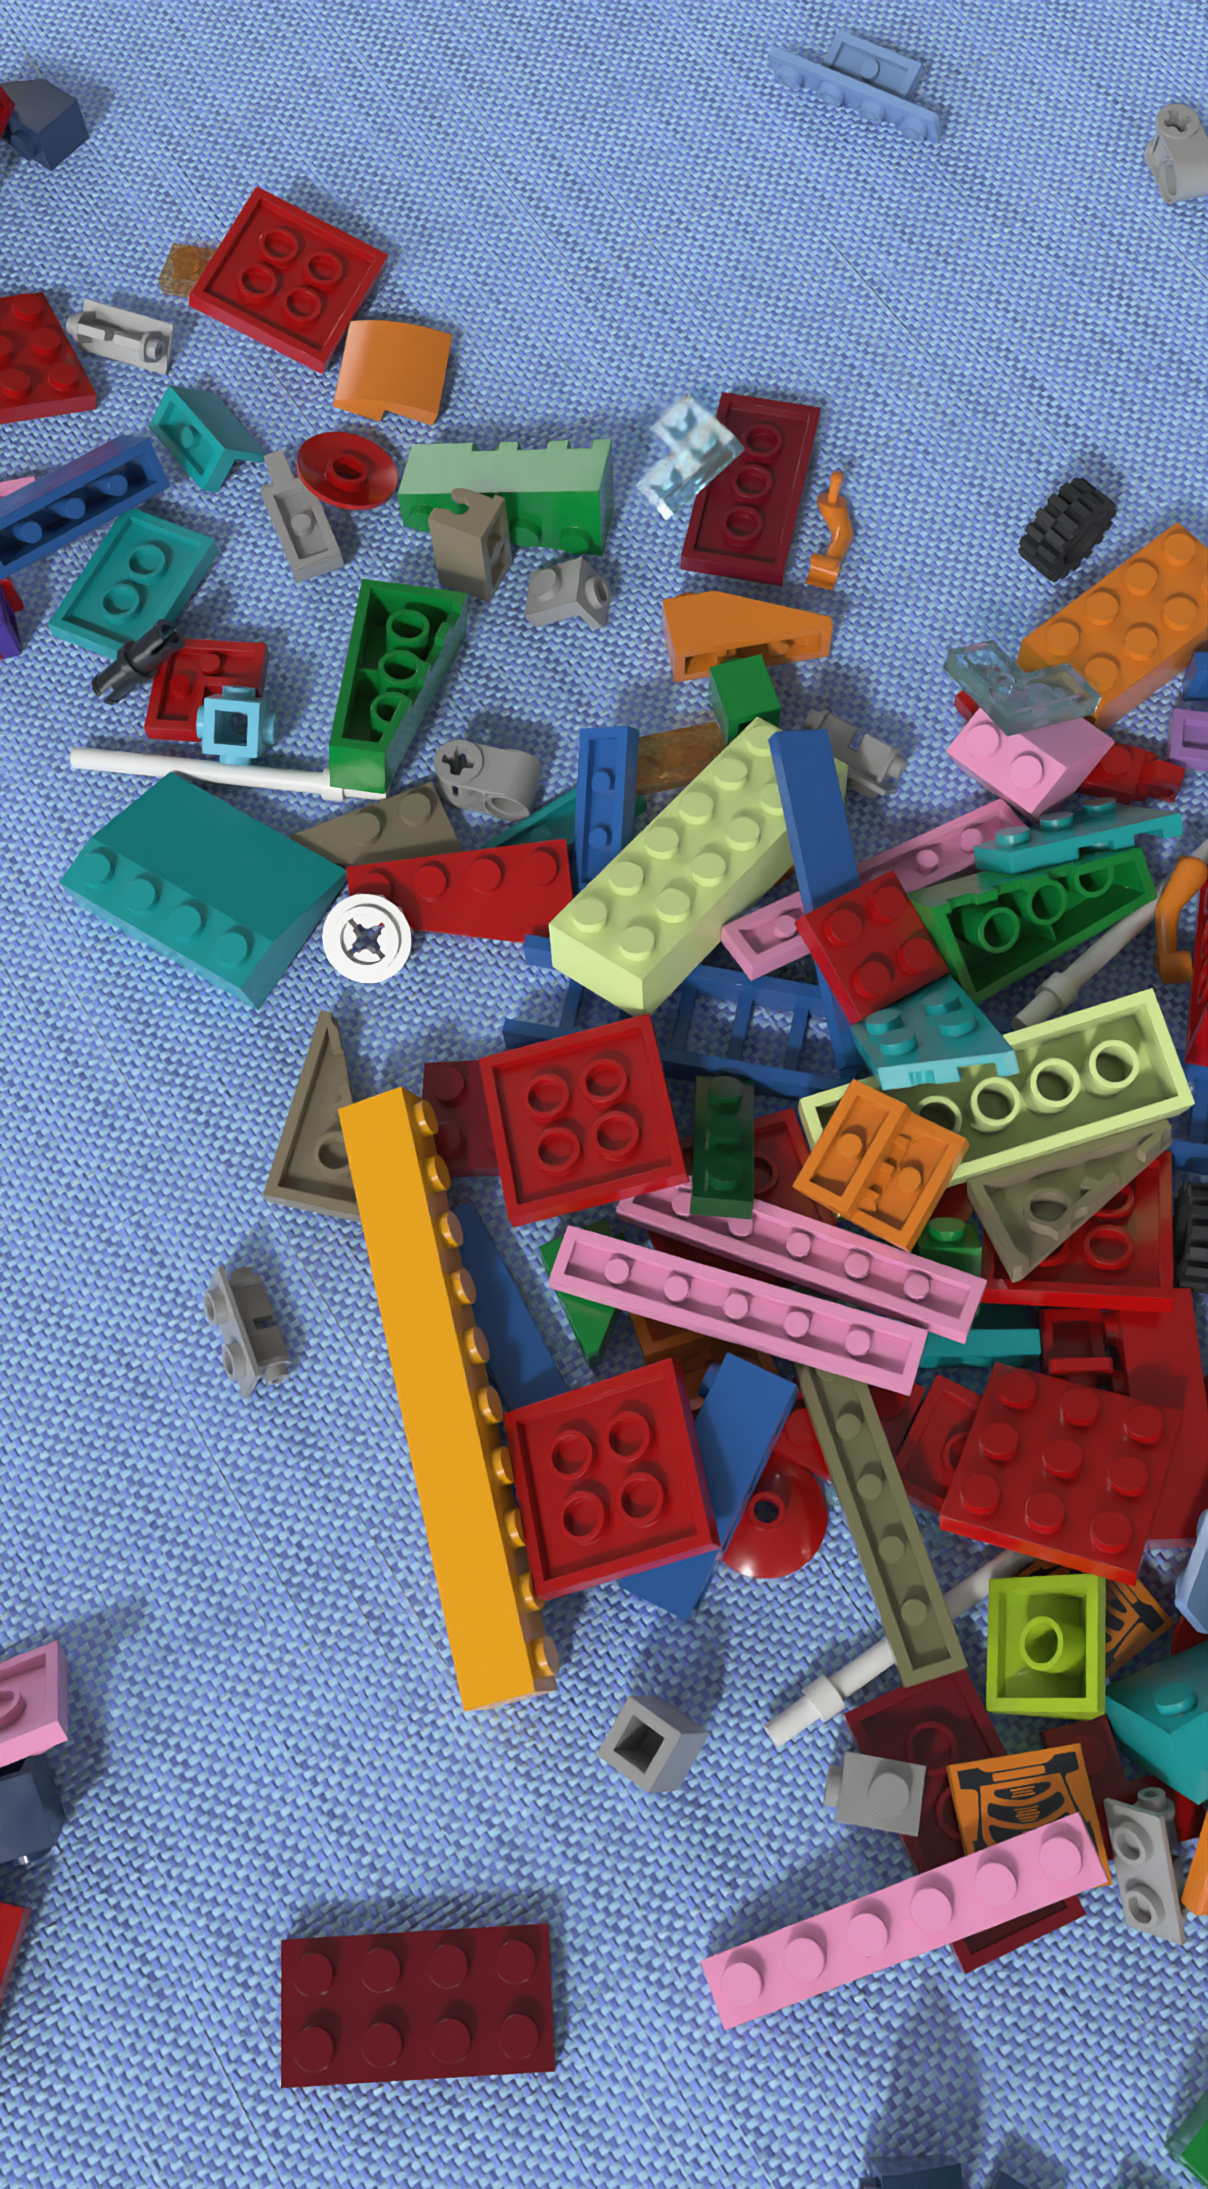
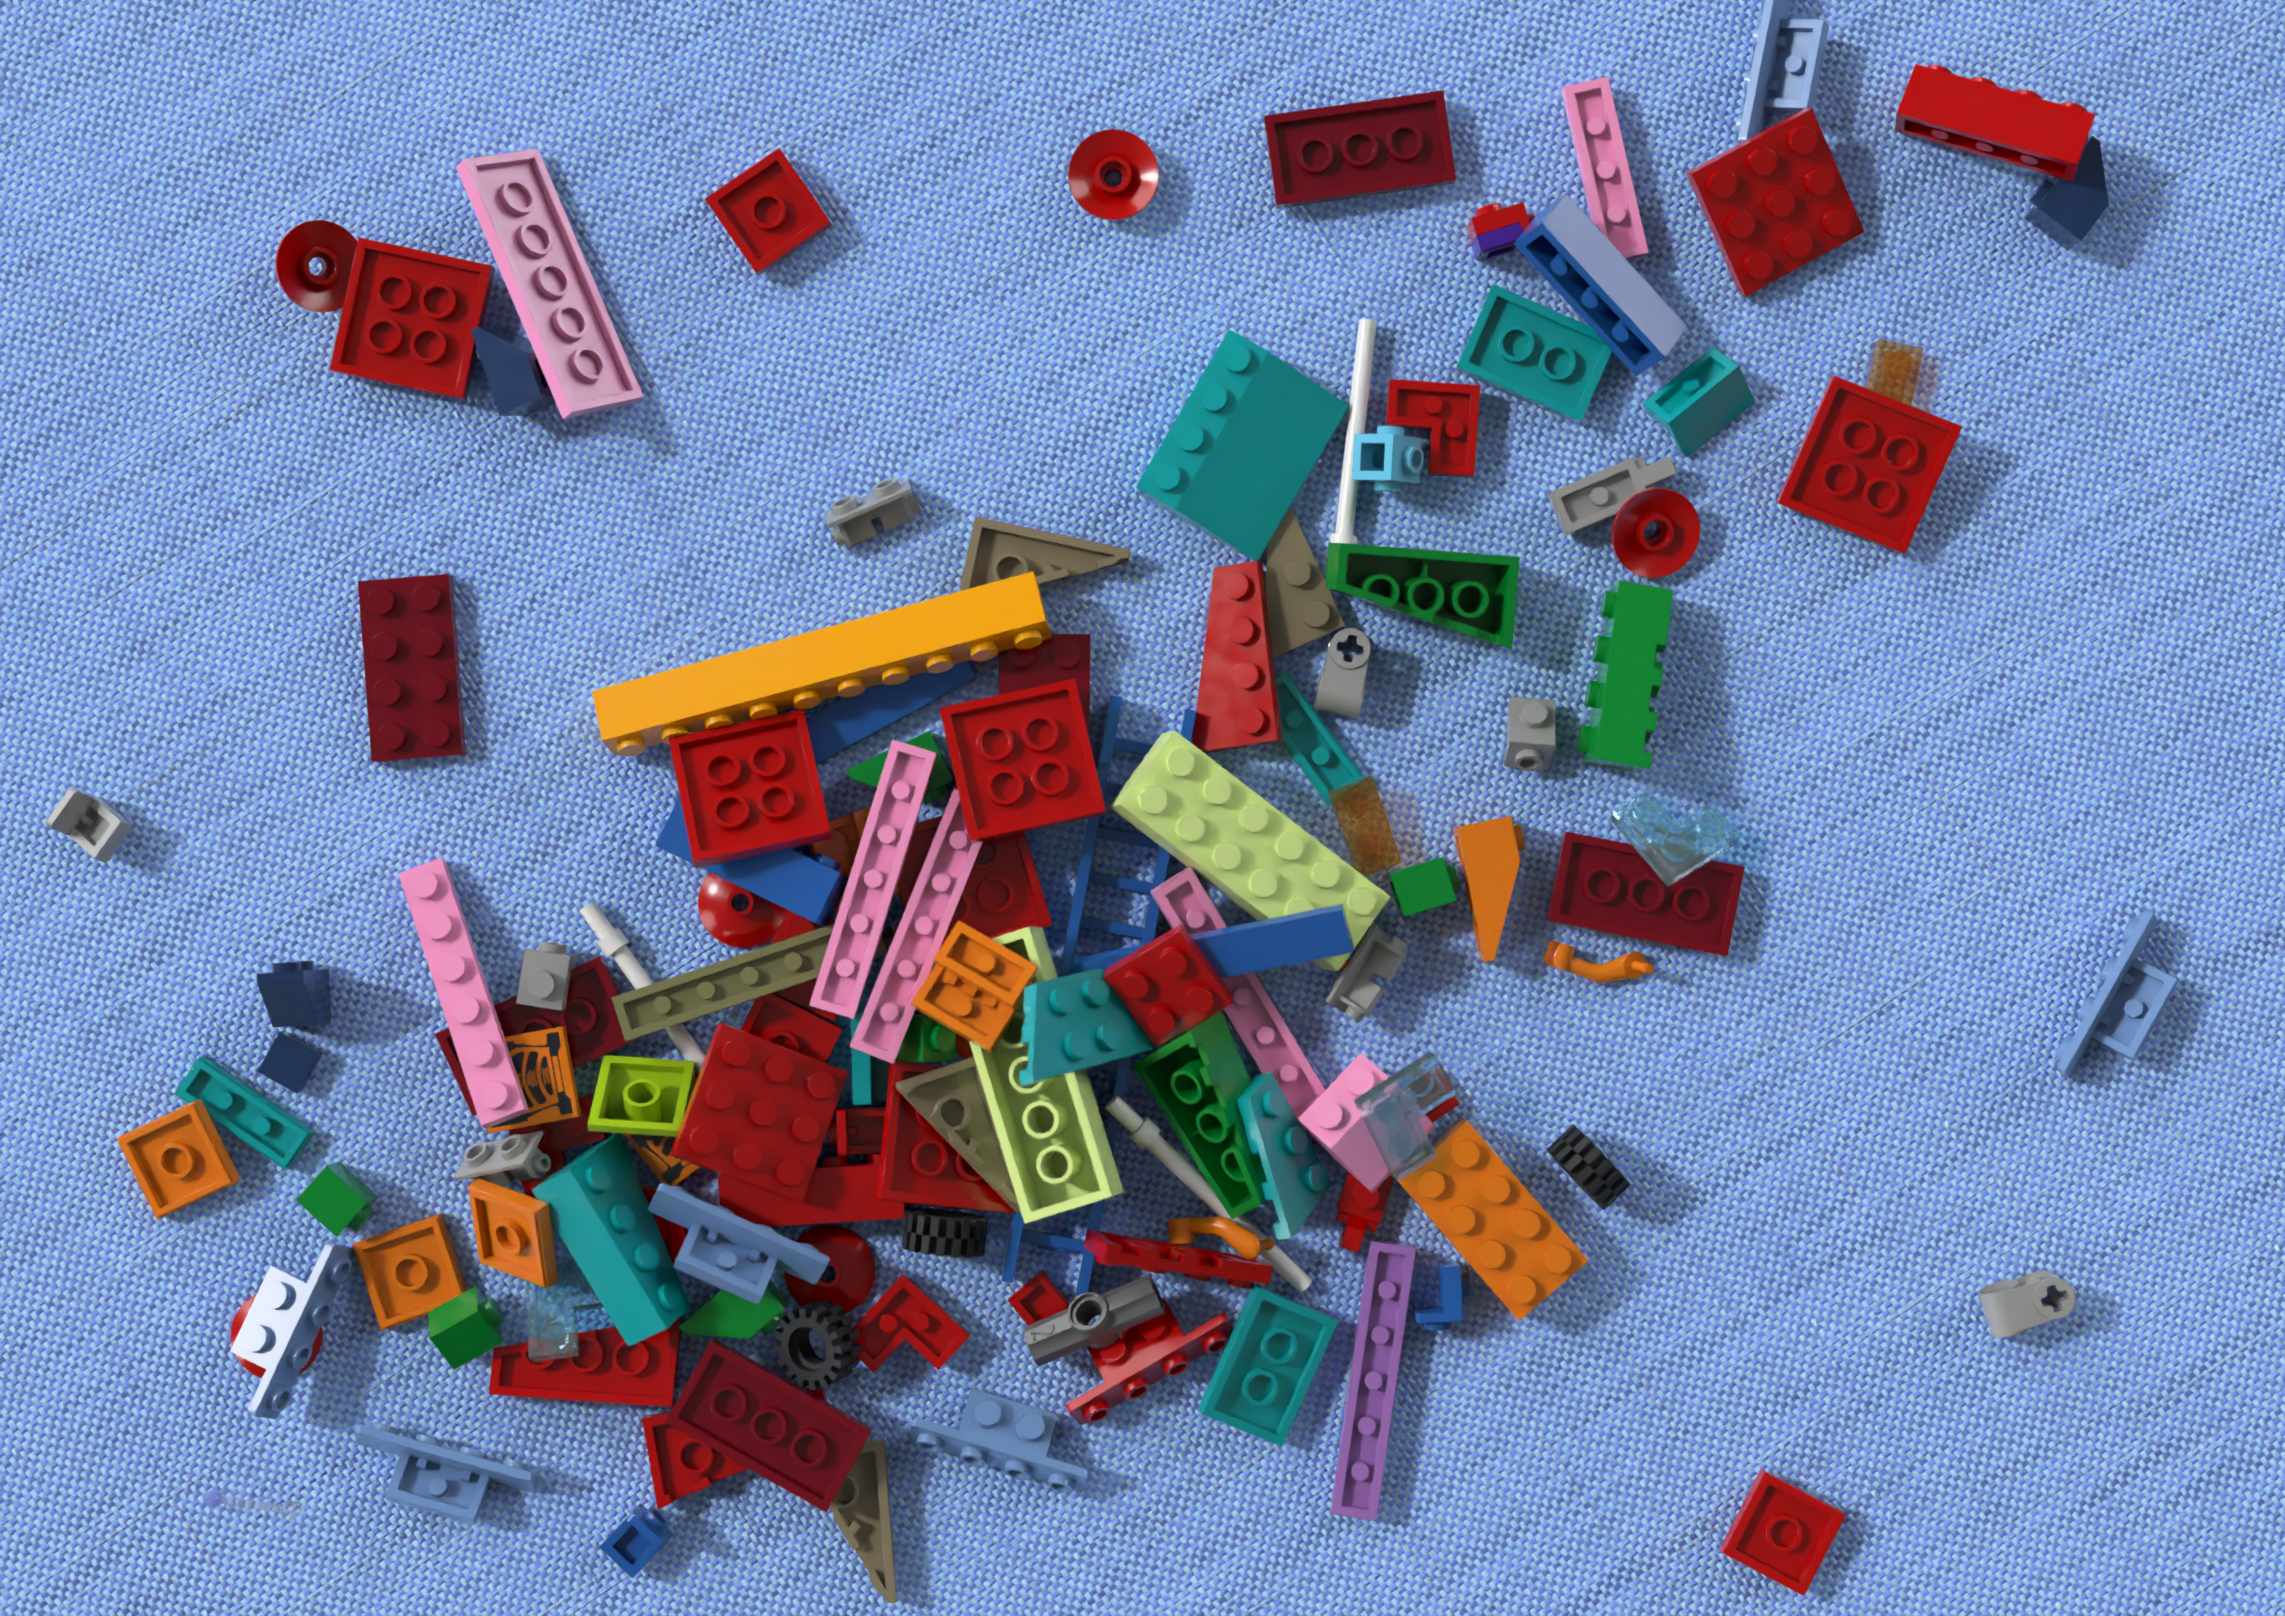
camera: 85 degrees right, 20 degrees up
(122, 335) = (1812, 314): light grey hinge -> none
(137, 662) = (1447, 368): black pin -> none
(341, 935) = (1179, 582): white gear -> none
(392, 370) = (1775, 565): orange slope -> none
(472, 547) = (1566, 655): dark tan hinge -> none
(603, 799) = (1307, 771): blue plate -> none
(653, 1743) = (574, 823): light grey brick -> none
(722, 1147) = (1008, 869): dark green plate -> none

